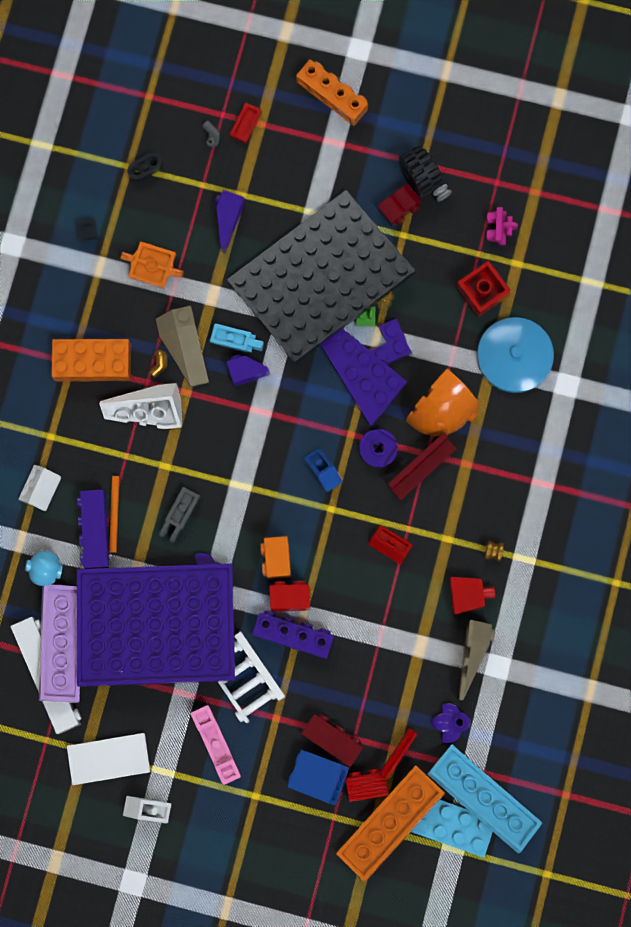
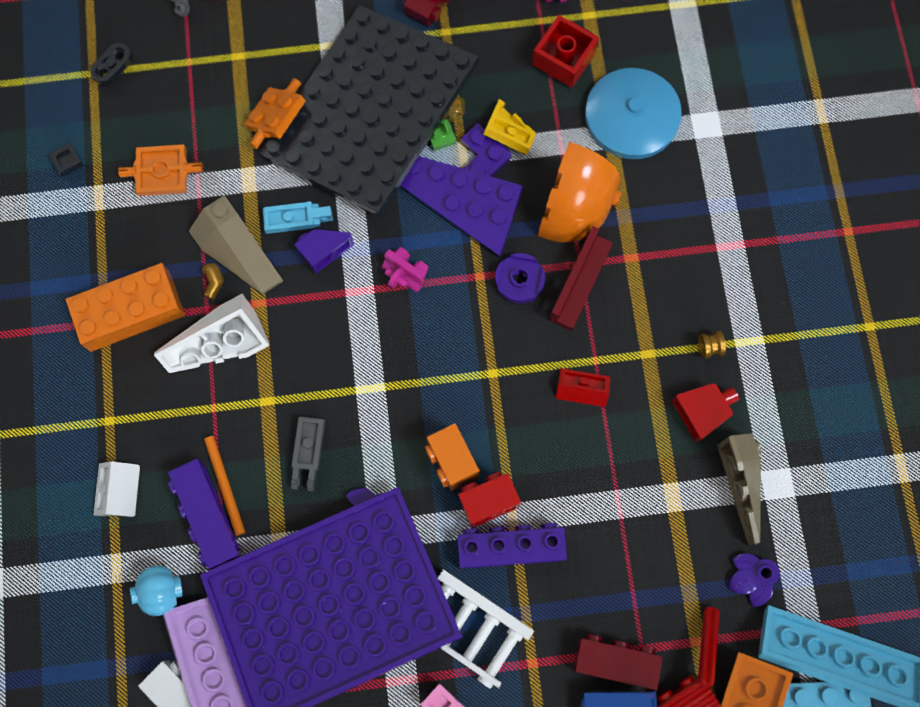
camera: 25 degrees left, 5 degrees down
(228, 212) = (231, 76): dark purple slope -> none
(250, 253) = (274, 113): none -> orange plate
(295, 411) = (402, 272): none -> dark pink hips
(323, 469) = (464, 328): blue slope -> none
(417, 332) = (509, 129): none -> yellow wing

